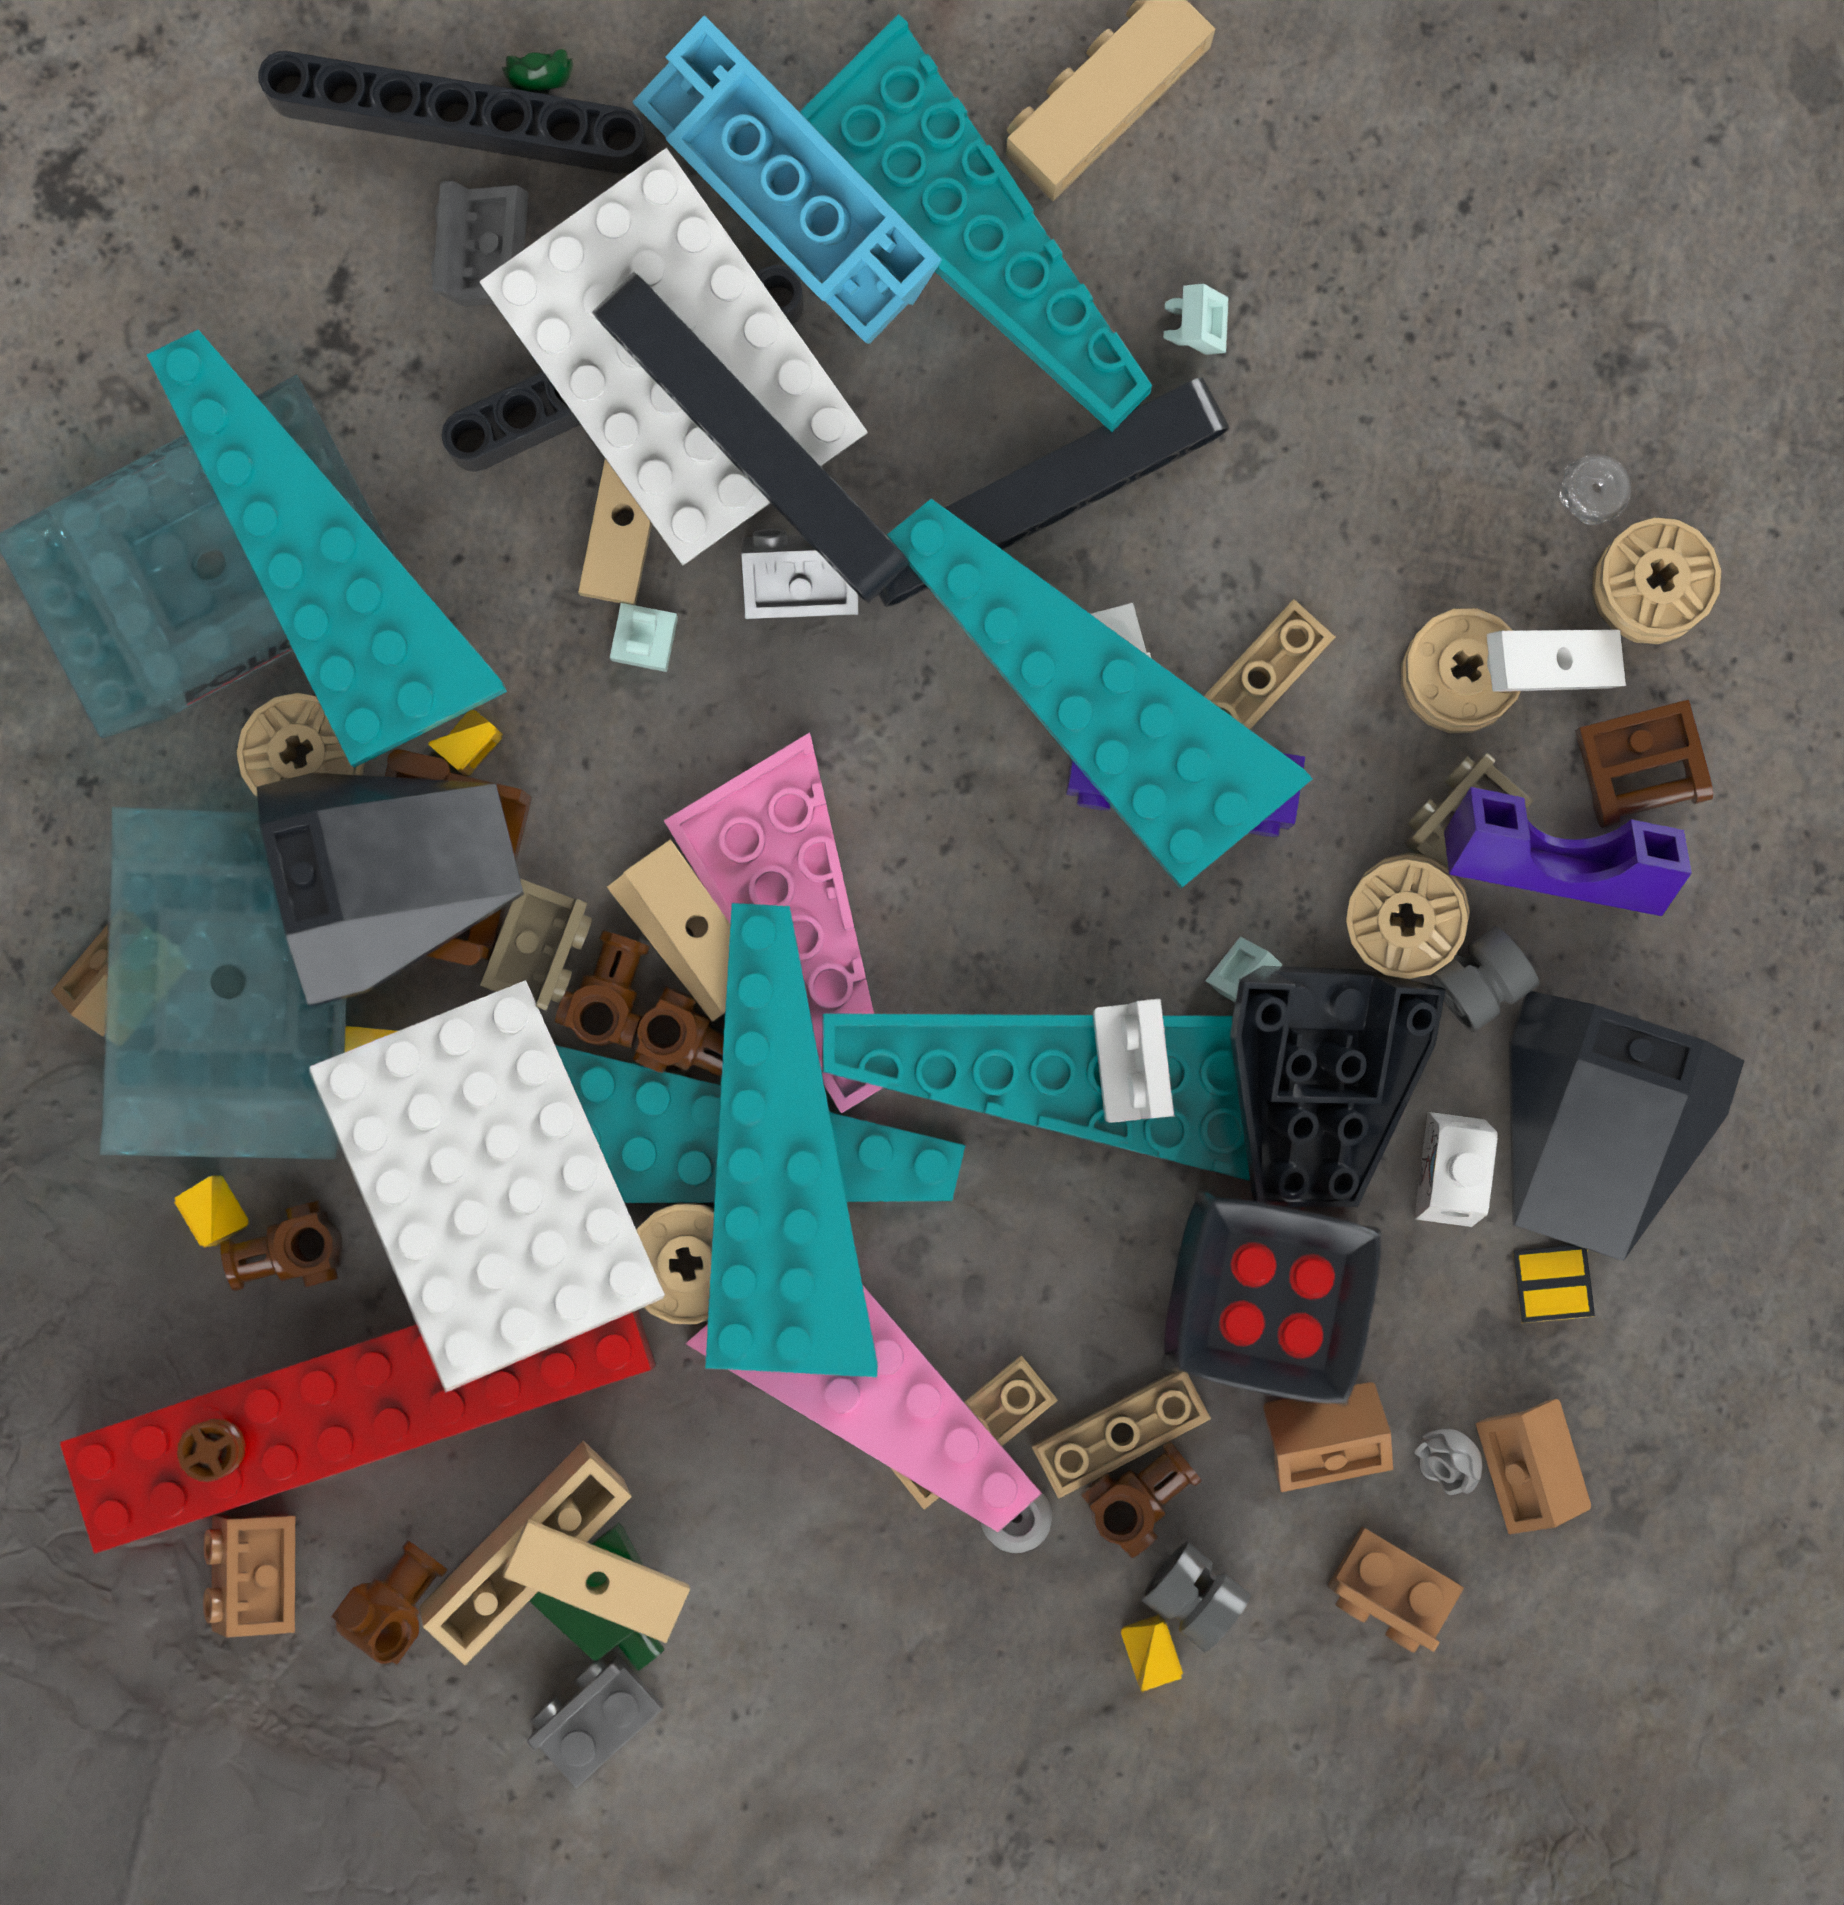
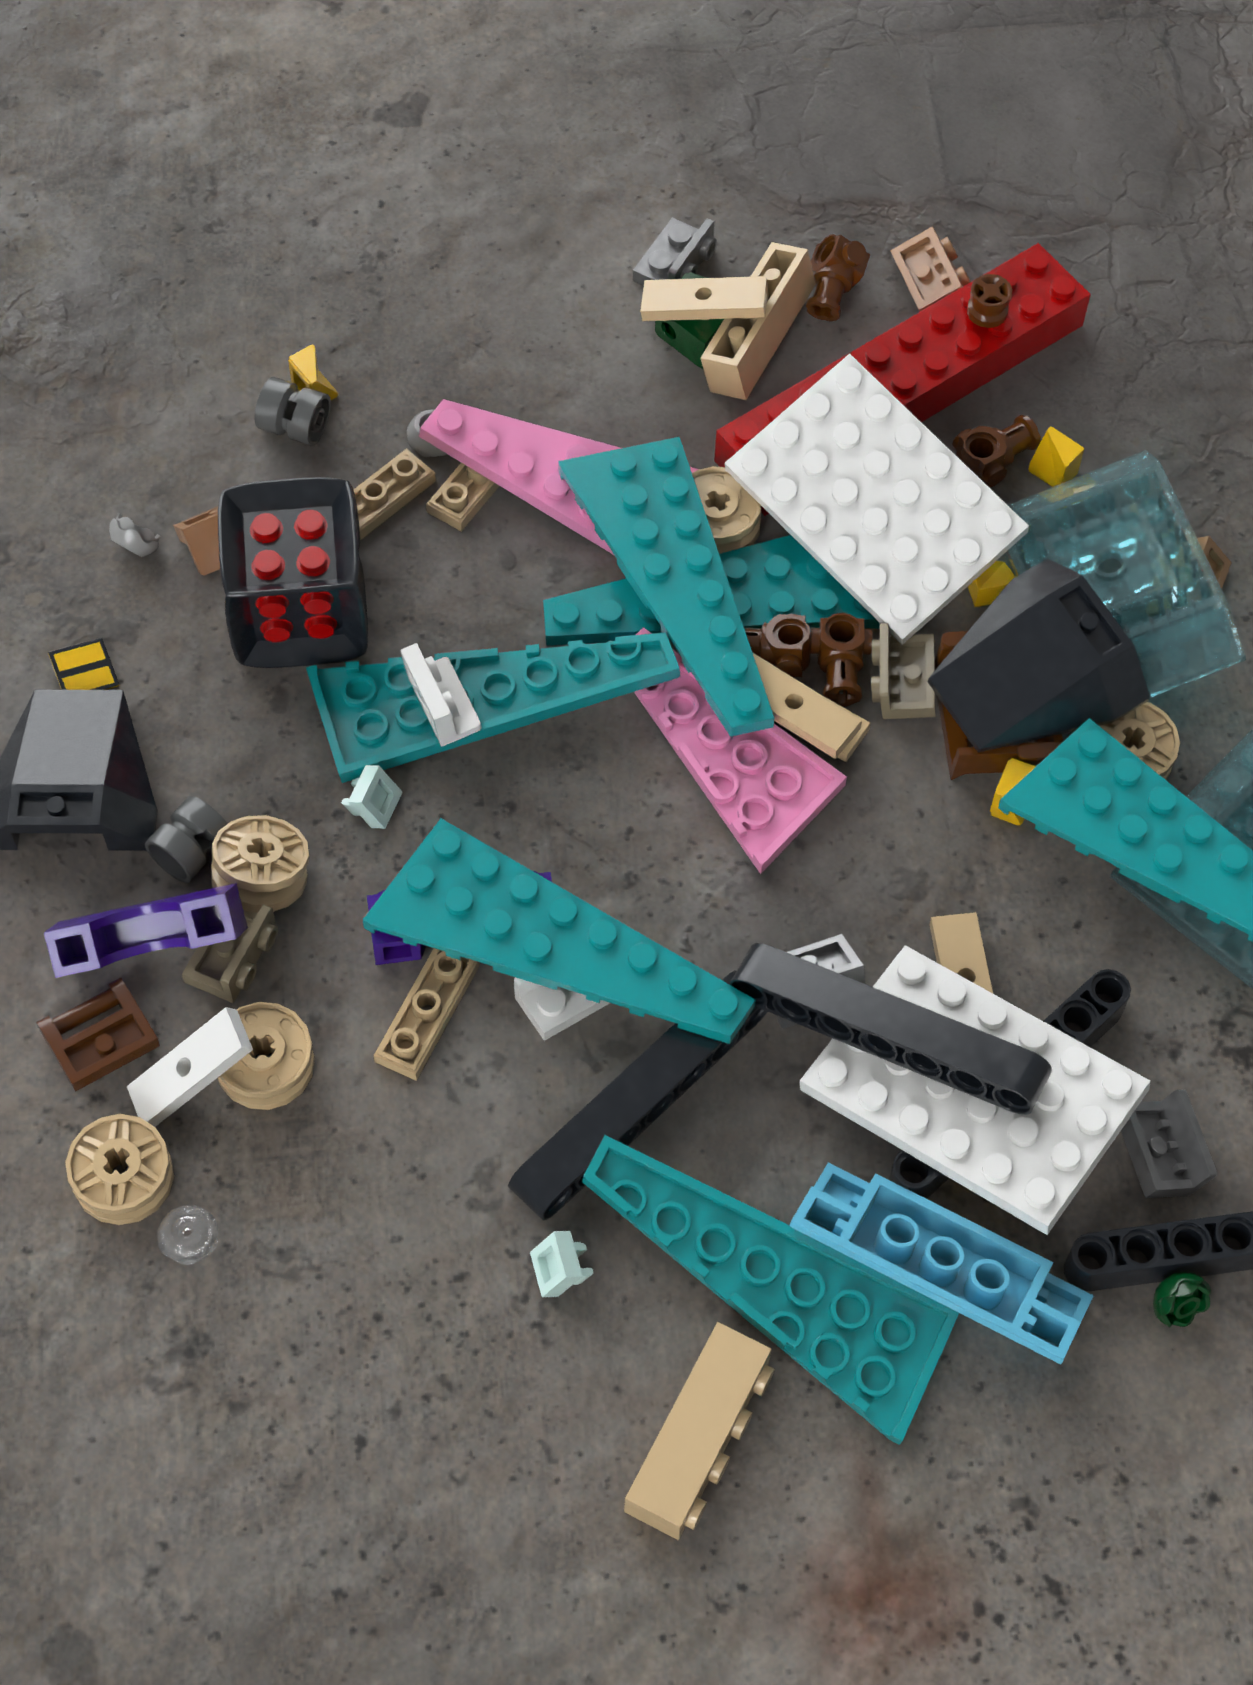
camera: 165 degrees right, 25 degrees down
(643, 637) = (912, 904): light aqua tile -> none
(1142, 1495) = (356, 451): reddish brown connector -> none
(1326, 1076) = (296, 741): black wedge -> none
(1395, 1589) = (153, 453): medium nougat bracket -> none
(1456, 1170) = (177, 697): white torso -> none
(1534, 1467) = (68, 550): medium nougat panel -> none

